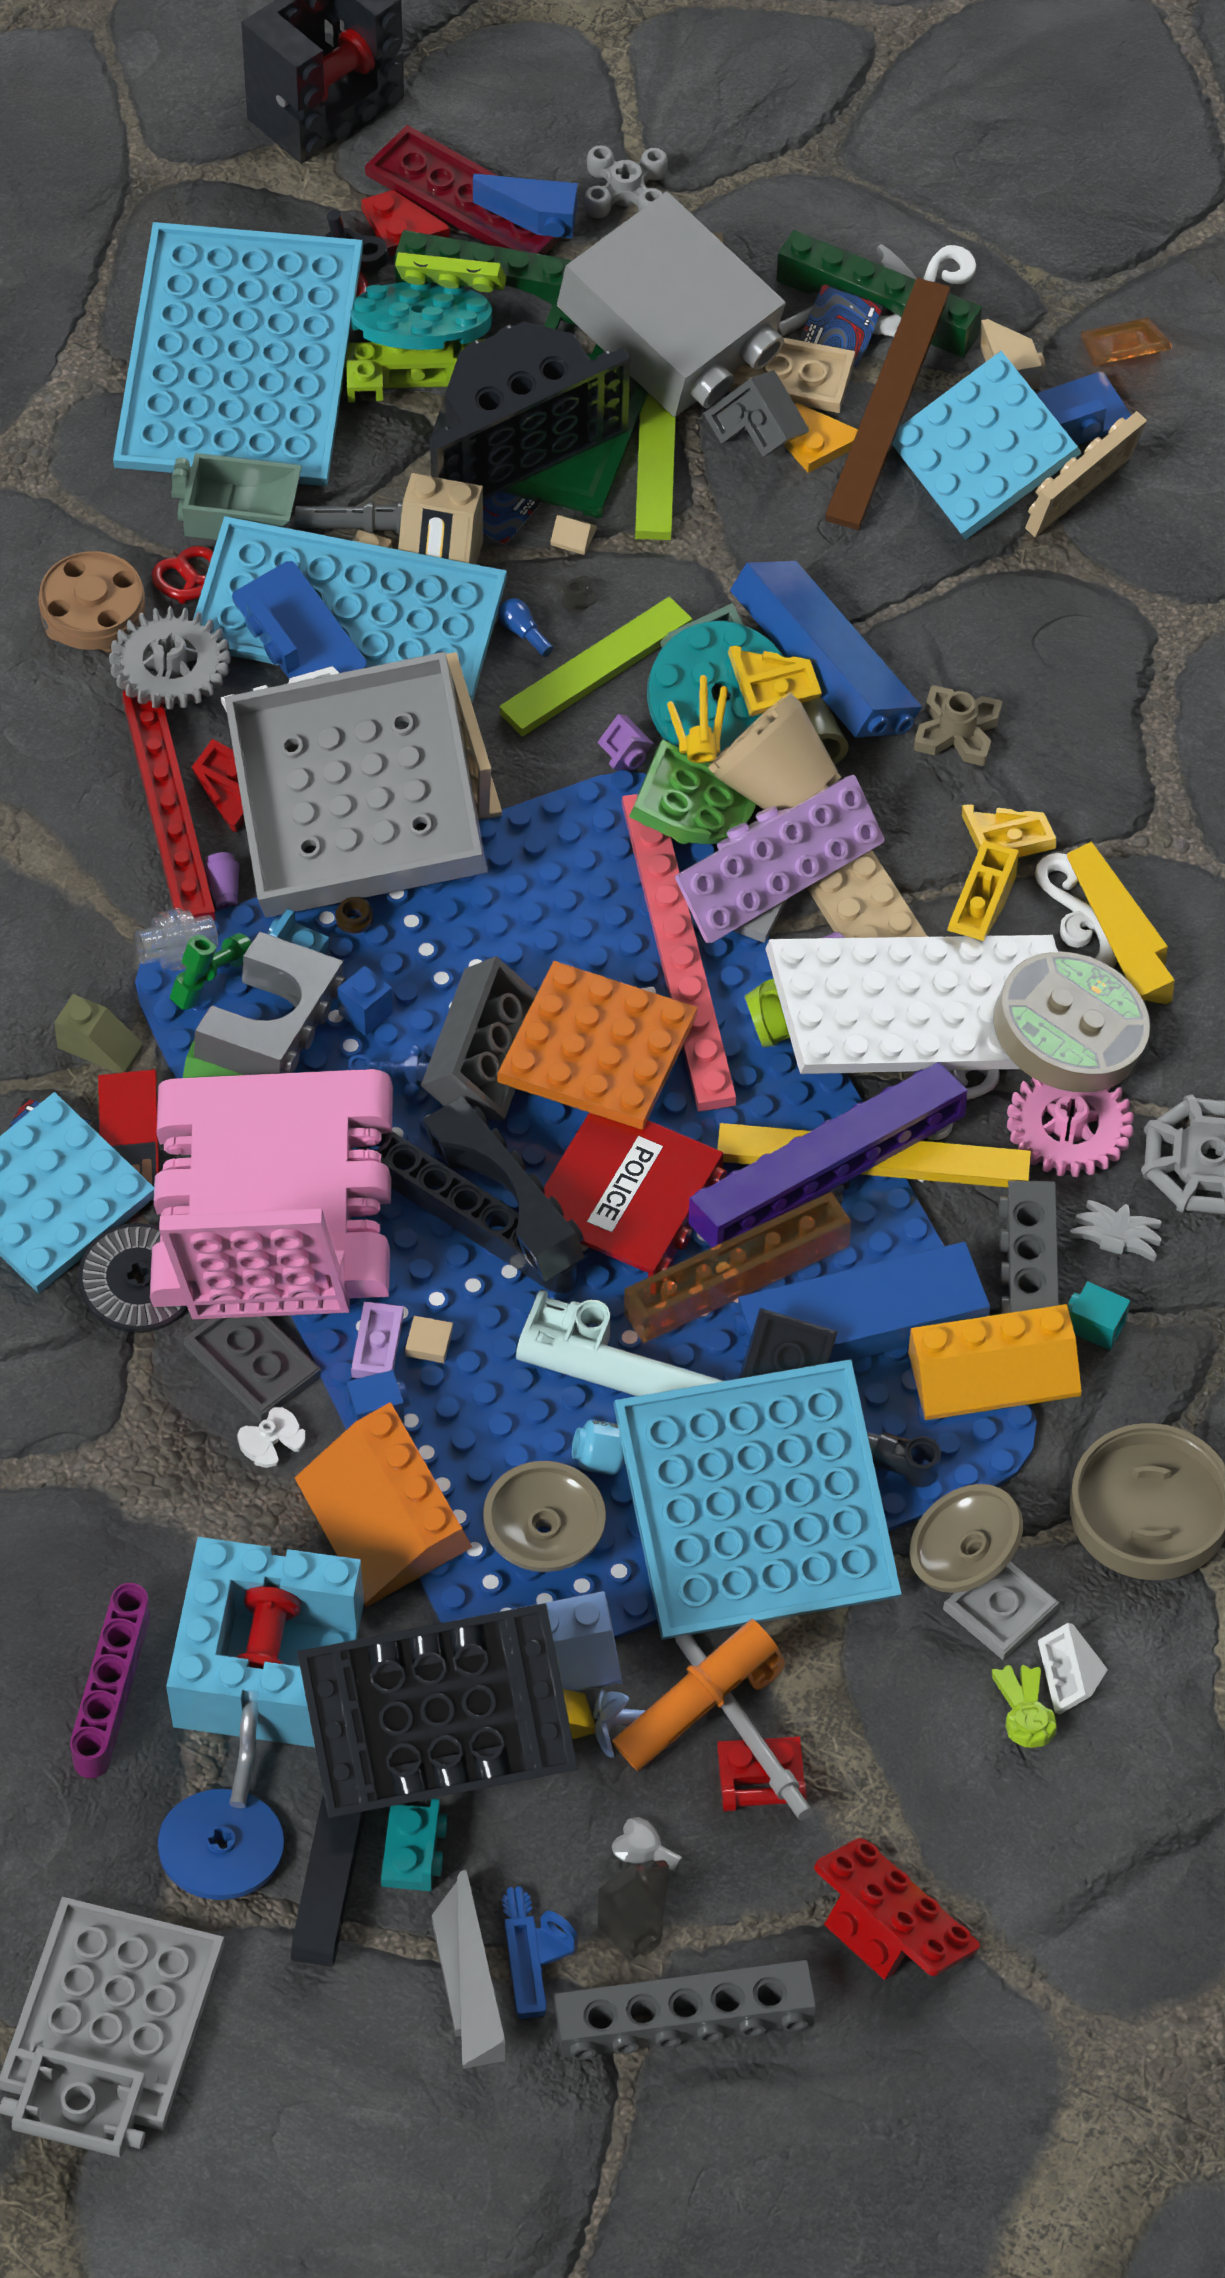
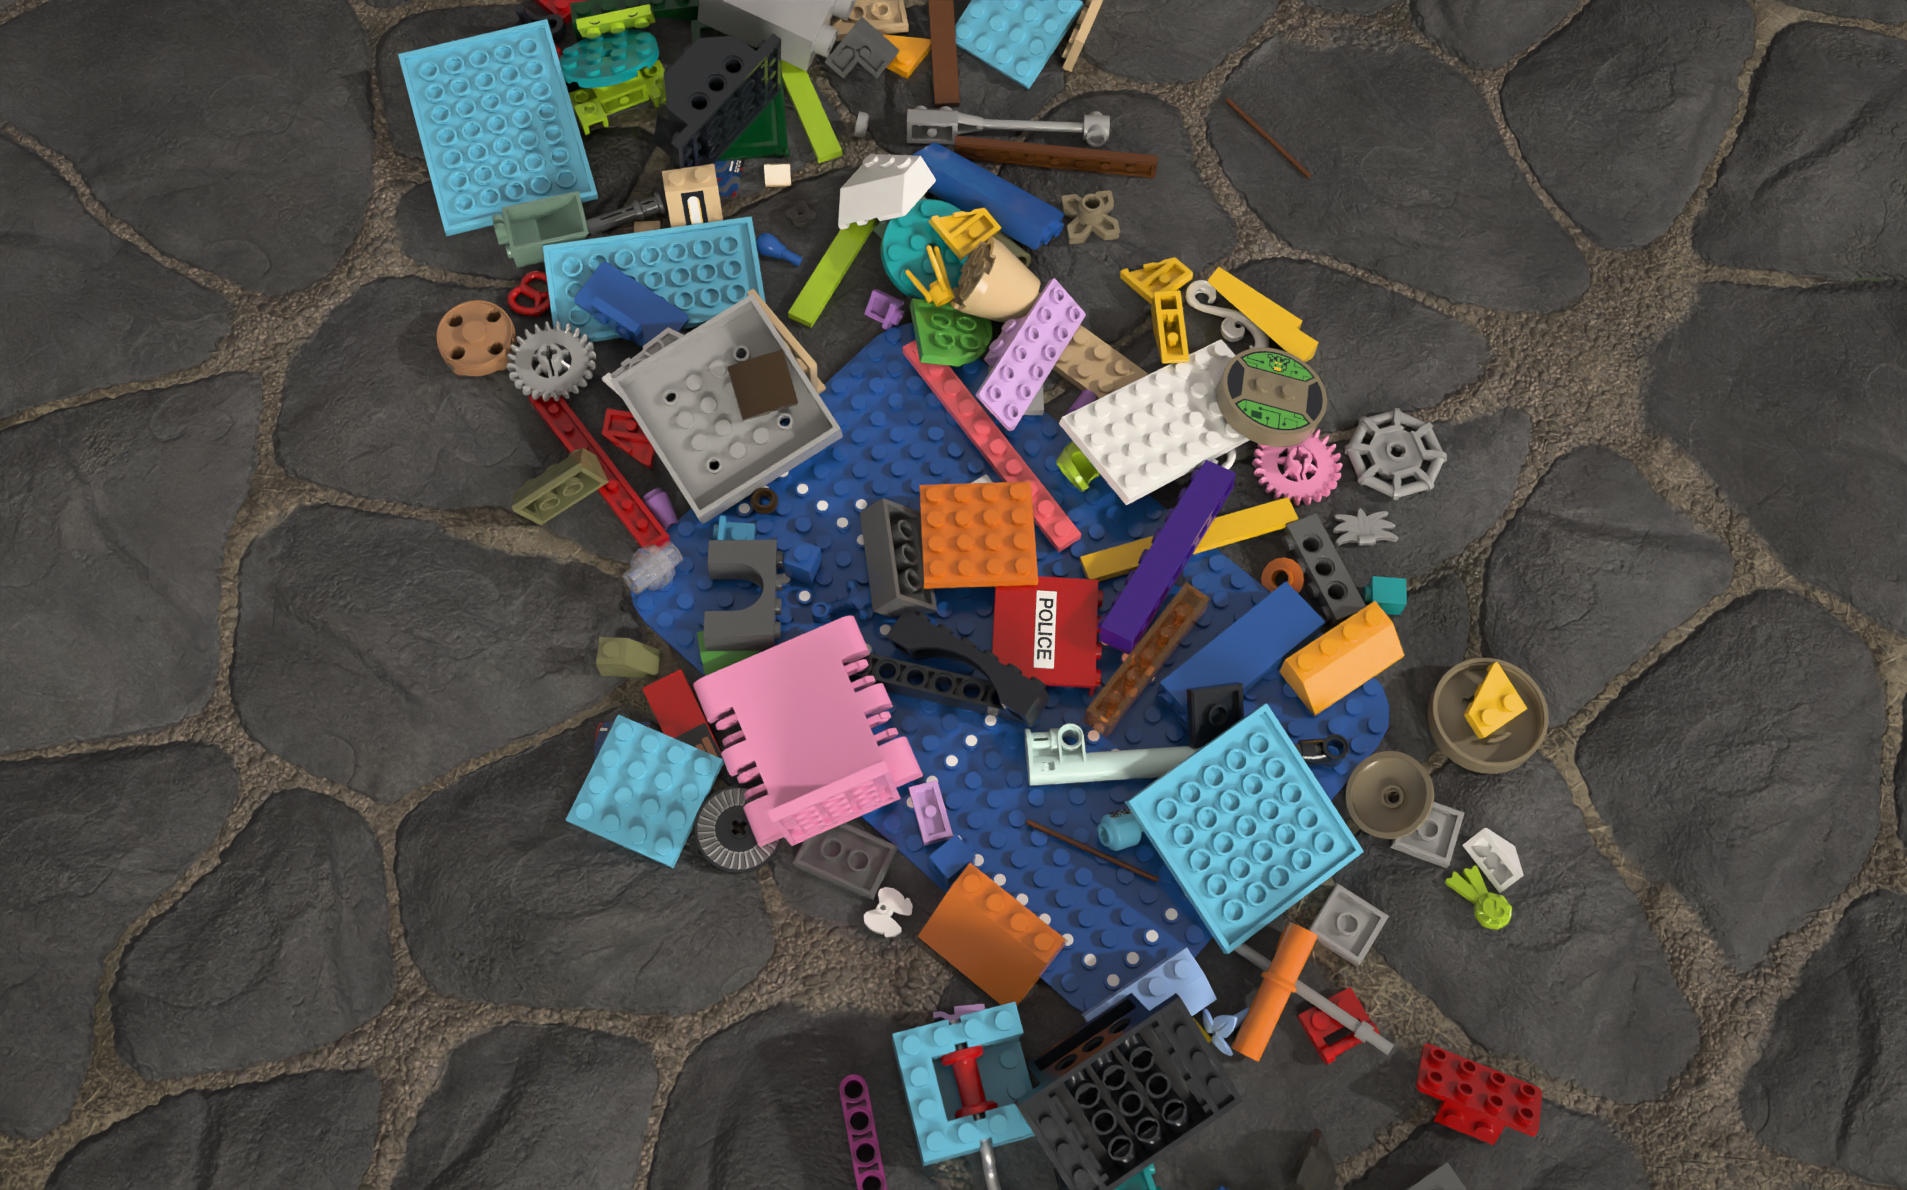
camera: 25 degrees left, 10 degrees up
(108, 808) = (559, 487): none -> olive slope
(202, 966) = (681, 579): green bar -> none
(407, 767) = (762, 385): none -> dark brown slope
(429, 1339) = (963, 795): tan tile -> none
(545, 1450) = (1092, 850): none -> reddish brown piece
(548, 1497) = (1116, 882): dark tan dish -> none
(642, 1844) = (1286, 1115): light grey rock -> none
(689, 592) = (883, 188): none -> white wedge
(712, 508) = (861, 125): none -> light grey tile
(826, 546) = (945, 124): none -> light grey bar
(837, 1671) = (1347, 925): none -> light grey tile
(952, 635) = (1056, 156): none -> reddish brown tile
(988, 1242) = (1293, 569): none -> orange piece
(1163, 1486) = (1493, 703): none -> yellow wing

